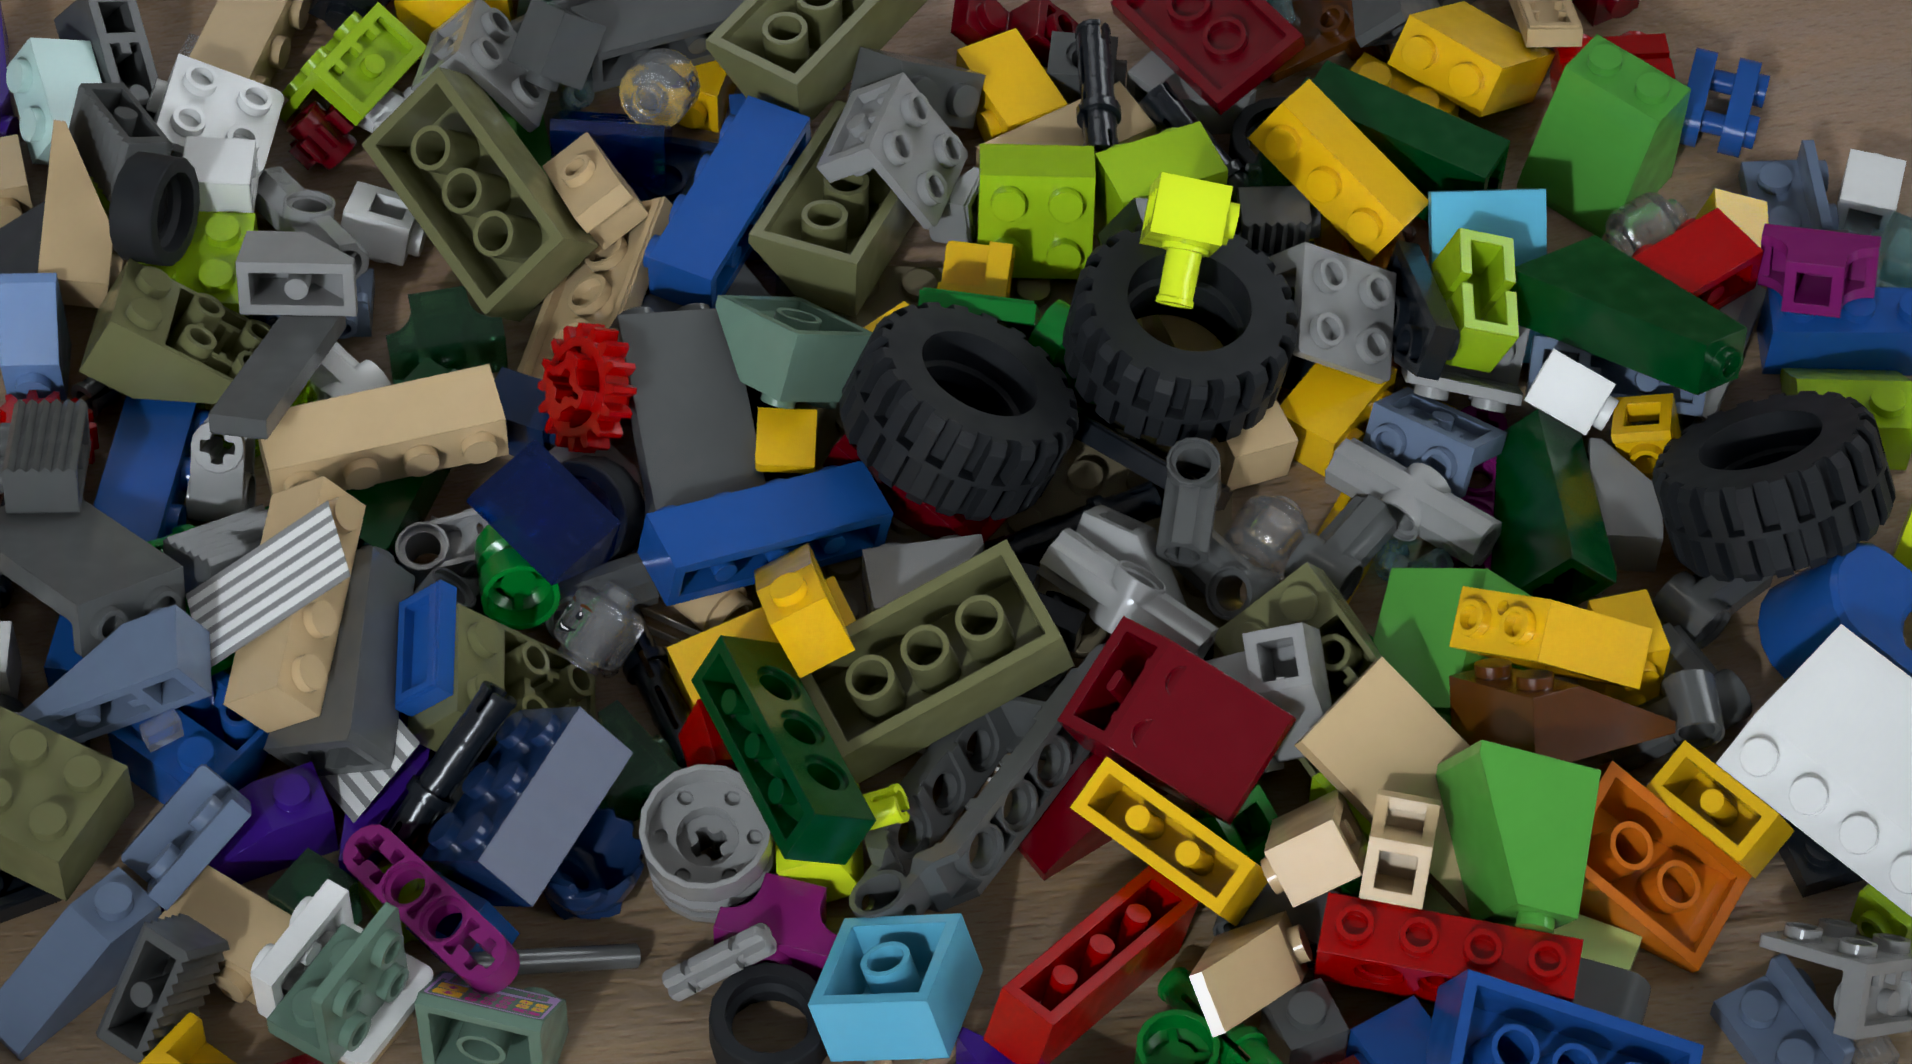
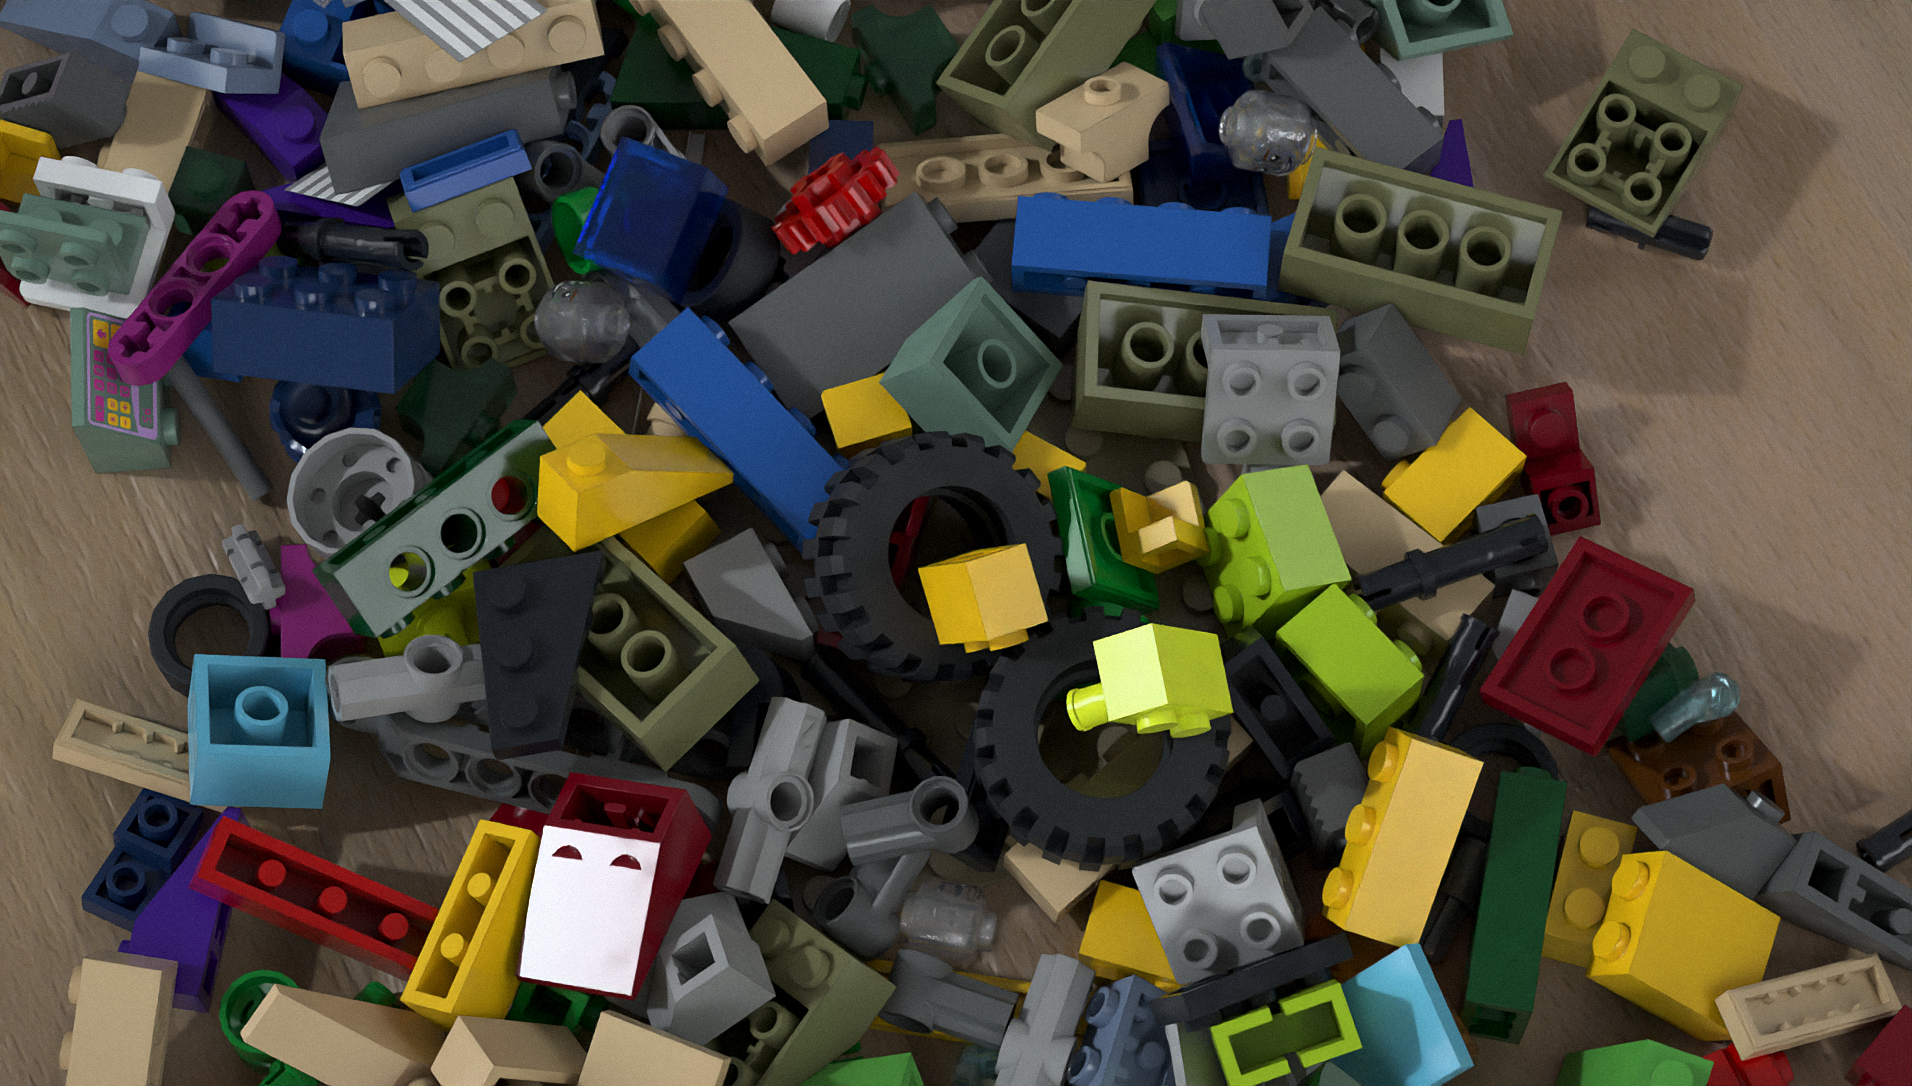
camera: 75 degrees right, 15 degrees up
(919, 809) = (423, 682): none -> light grey piece
(936, 703) = (532, 645): none -> black wing
(1041, 342) = (984, 597): none -> yellow brick

